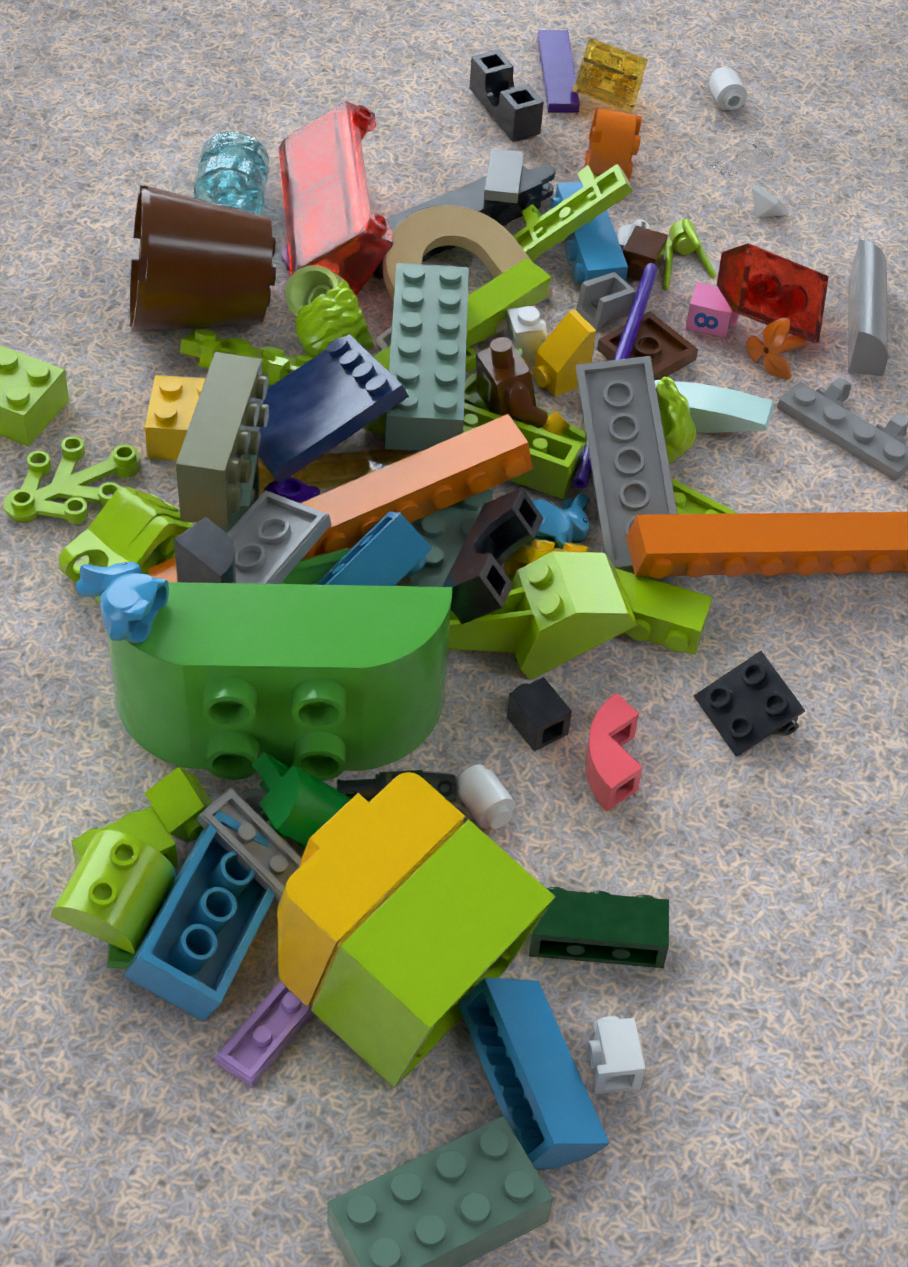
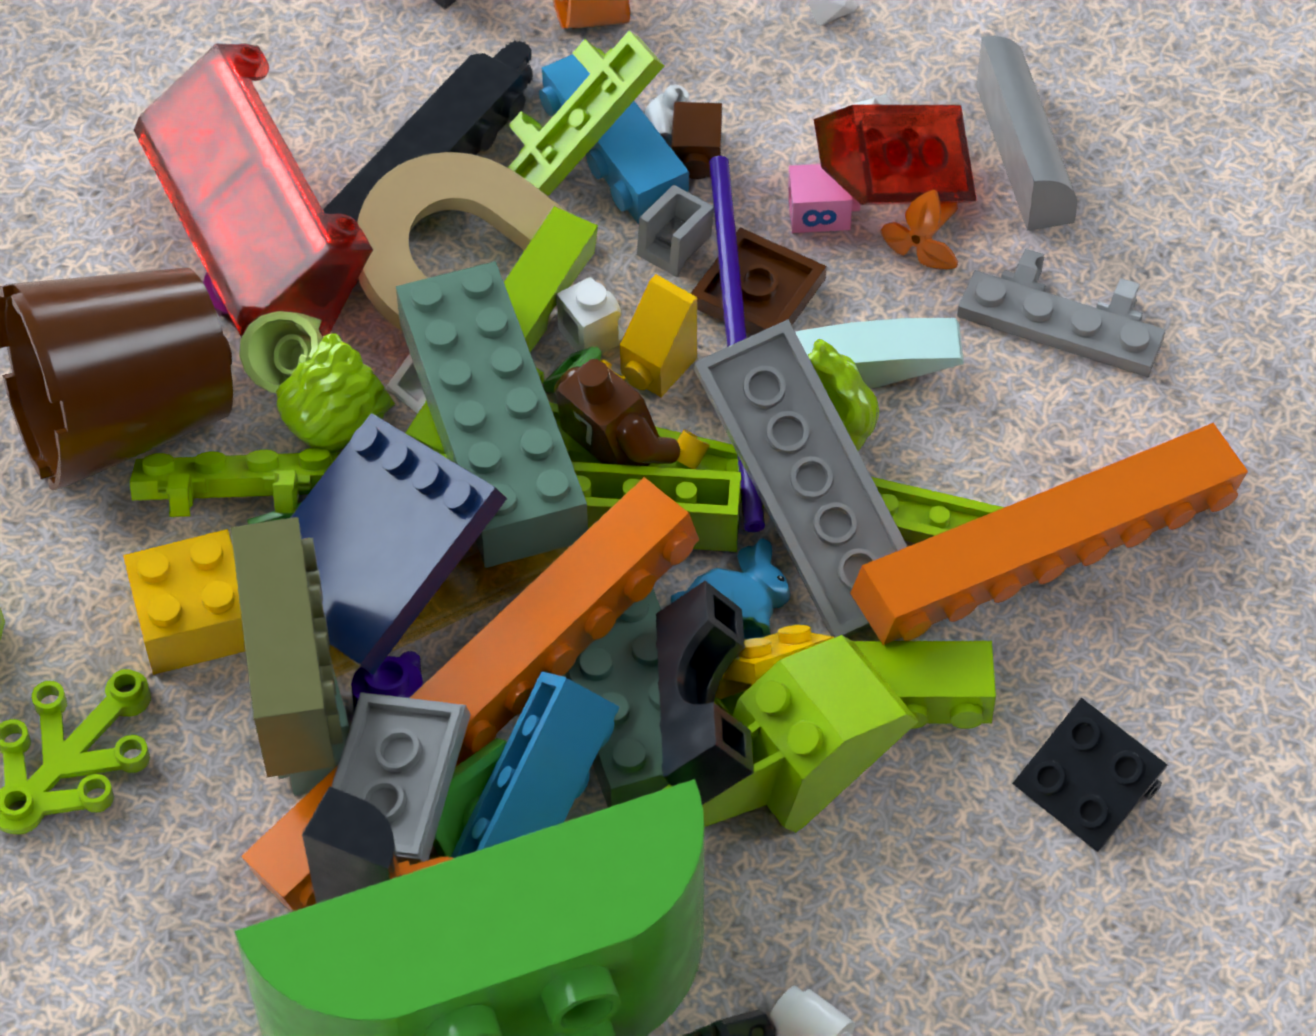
camera: 15 degrees left, 5 degrees up
(126, 598) = (290, 950): dark azure animal -> none
(127, 529) = (195, 822): lime piece -> none
(233, 171) = (90, 201): clear light blue wheel -> none
(503, 175) = (467, 81): tile -> none
(538, 713) = (832, 883): black brick -> none
(608, 767) = (948, 928): coral brick -> none
(685, 241) = (743, 99): lime plant -> none

